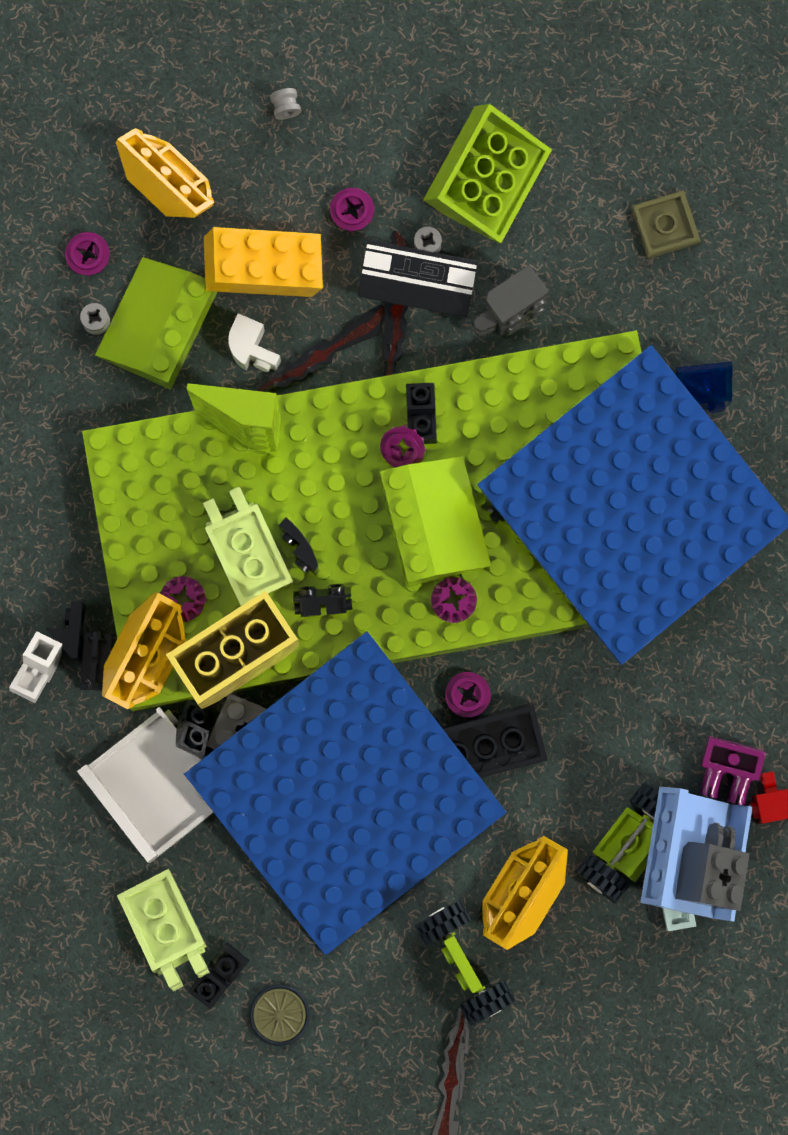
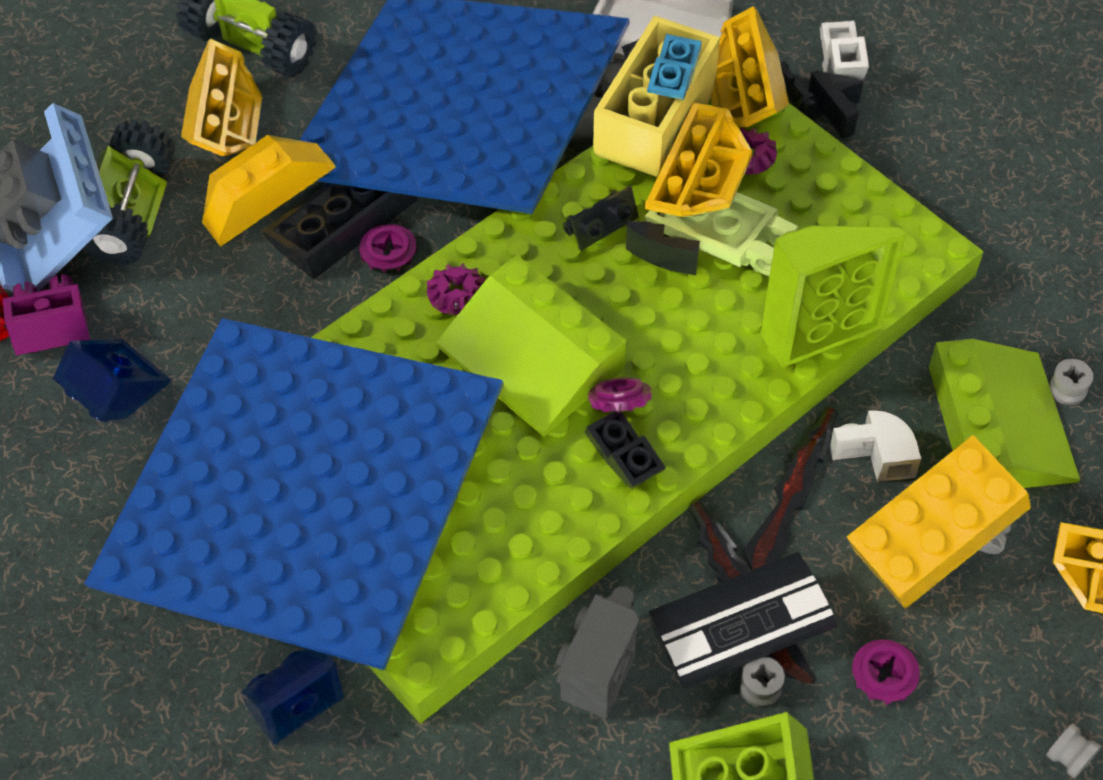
camera: 150 degrees right, 25 degrees down
(221, 637) = (675, 67): none -> dark azure slope
(243, 571) = (702, 165): none -> yellow wedge
(528, 800) = (259, 183): none -> yellow wedge
(708, 688) = (108, 377): none -> clear blue slope

